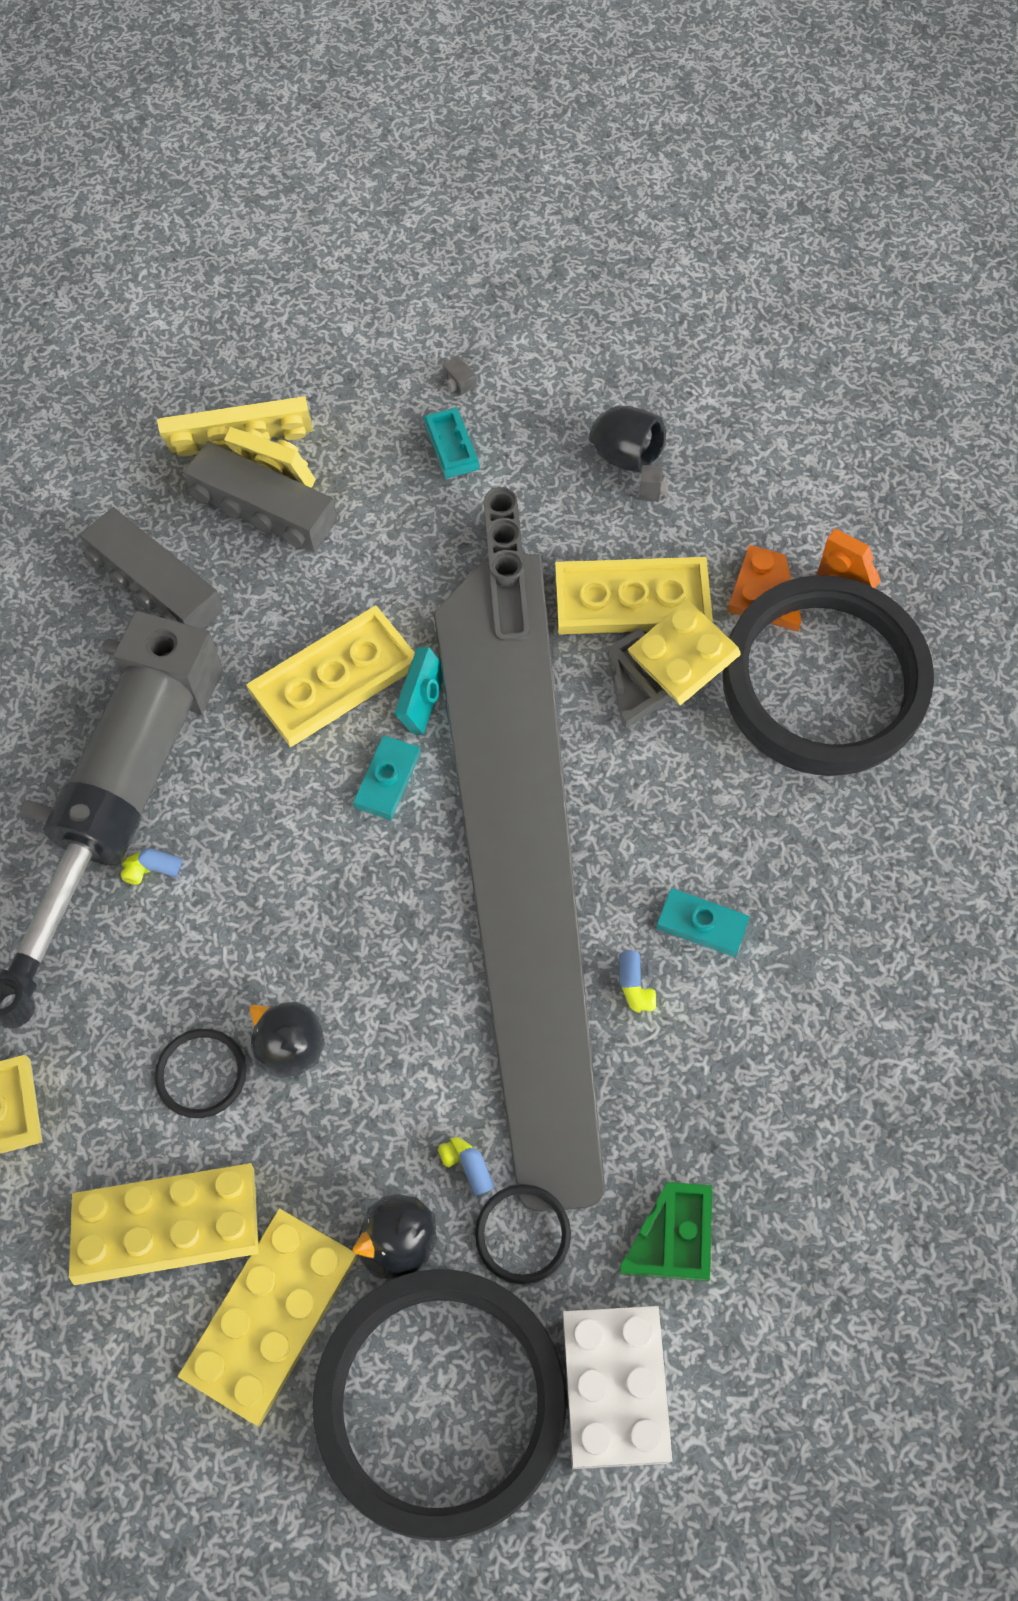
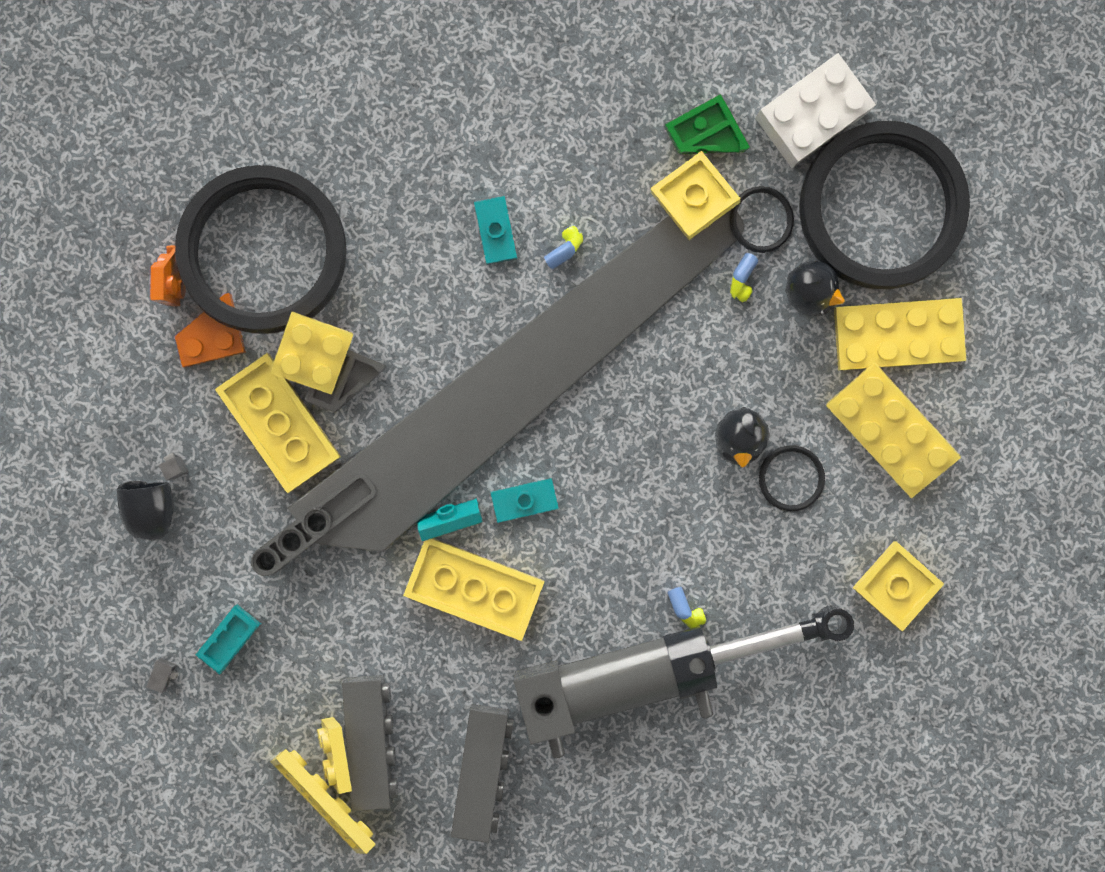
camera: 125 degrees left, 25 degrees up
(601, 1164) = (695, 195): none -> light yellow plate

